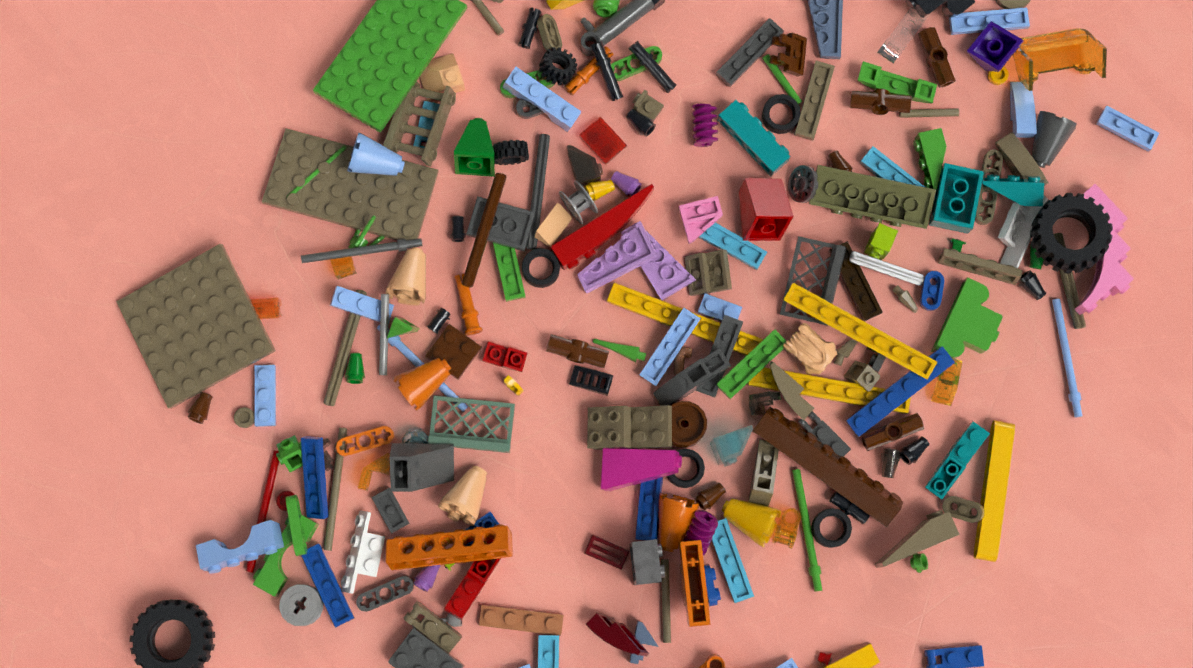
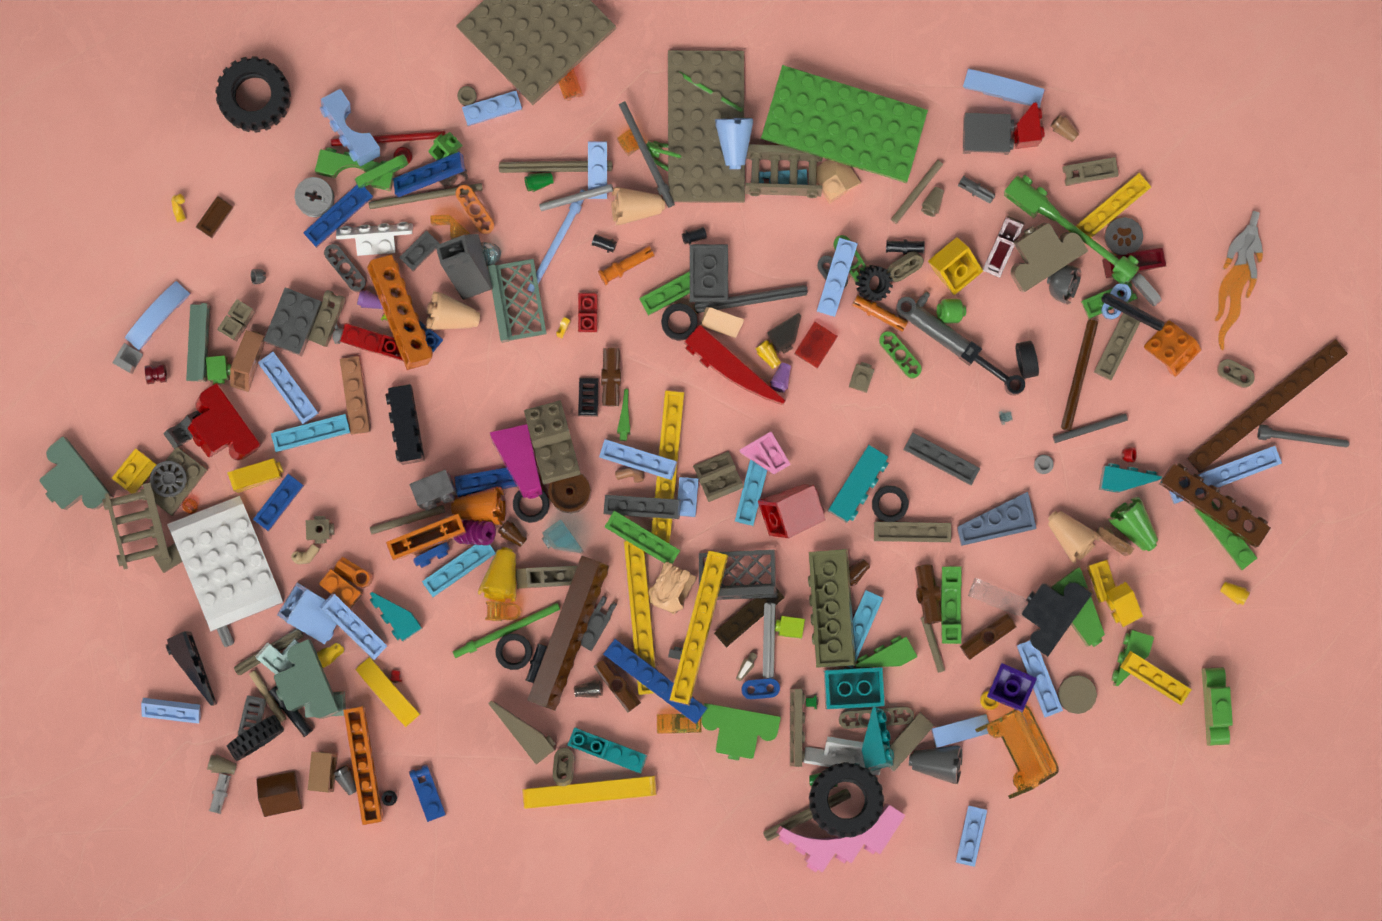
camera: 75 degrees right, 5 degrees up
(200, 408) = (463, 54): reddish brown cone -> none
(401, 327) = (587, 212): bright green slope -> none
(422, 382) = (541, 244): orange cone -> none
(455, 349) = (579, 265): reddish brown plate -> none
(475, 151) = (772, 229): green slope -> none
(484, 230) = (697, 259): reddish brown axle -> none
(510, 152) = (778, 262): black tyre -> none
(567, 574) = (406, 424): none -> black wedge
(578, 202) = (748, 338): light grey piece -> none
(591, 545) = (428, 456): dark red tile -> none
(603, 62) = (888, 324): black pin -> none
(616, 634) = (363, 481): dark red slope -> none
(624, 256) = (710, 395): lavender wing -> none
(642, 123) = (843, 375): black cone -> none
(643, 637) = (369, 507): sand blue slope -> none
(652, 66) = (903, 364): black pin -> none
(664, 271) = (710, 431): lavender wing -> none
(692, 378) = (613, 487): dark grey slope -> none
(704, 124) = (857, 435): magenta piece -> none
(758, 401) = (609, 555): clear smoke bracket -> none
(768, 635) = (401, 620): none -> teal slope
(782, 79) = (924, 497): bright green bar -> none
(790, 391) = (627, 579): dark tan slope -> none
(795, 52) = (951, 501): reddish brown plate -> none
(802, 184) = (825, 542): flat silver wheel -> none
(844, 351) = (679, 620): dark tan bar -> none
(863, 375) = (661, 643): dark tan bracket -> none
(913, 451) = (604, 708): black cone -> none
(919, 562) = (504, 739): bright green plate -> none
(1031, 283) = (793, 780): black cone -> none
(1074, 396) = (699, 846): light blue bar -> none

